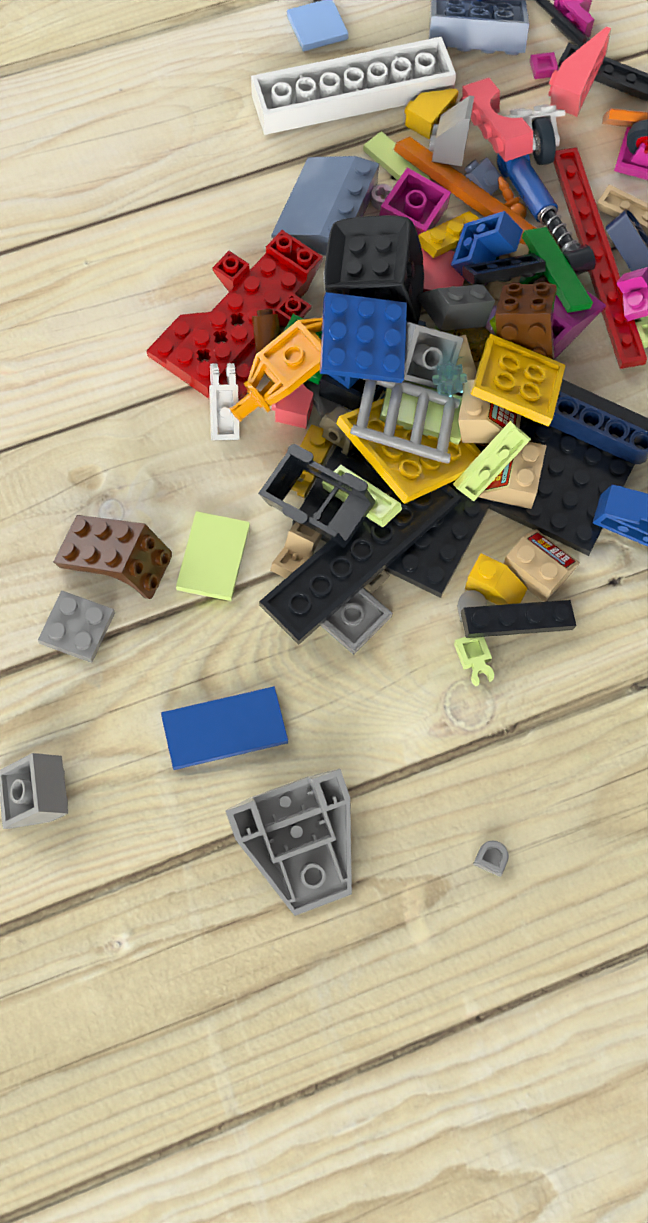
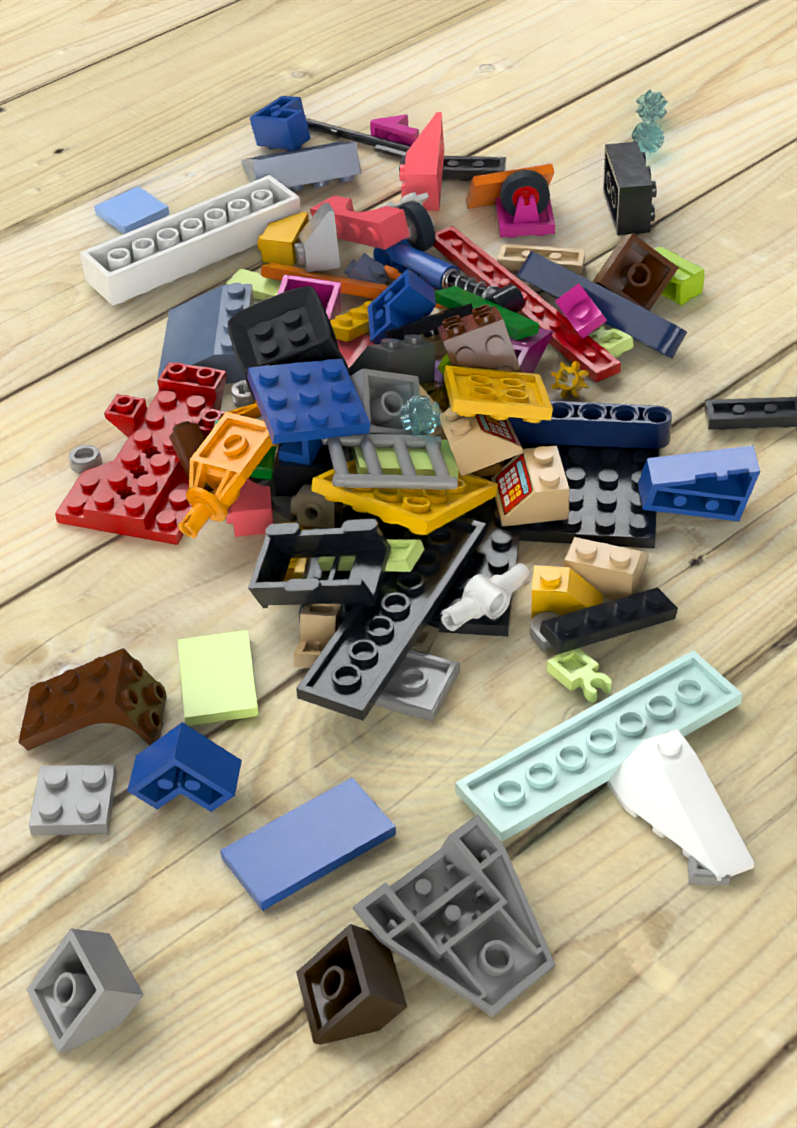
camera: 15 degrees left, 25 degrees down
(157, 638) = (185, 765): none -> blue brick
(188, 299) = (84, 458): none -> light grey tile
(206, 860) = (350, 987): none -> dark brown slope
(222, 397) = (174, 547): white hinge -> none
(433, 567) = (486, 597): none -> white pin
(462, 726) = (593, 744): none -> light aqua plate
(491, 461) = (503, 476): yellowish green tile -> none
(492, 794) = (674, 795): none -> white wedge
(543, 65) = (384, 181): dark pink tile -> none
(602, 357) = (561, 378): none -> yellow gear

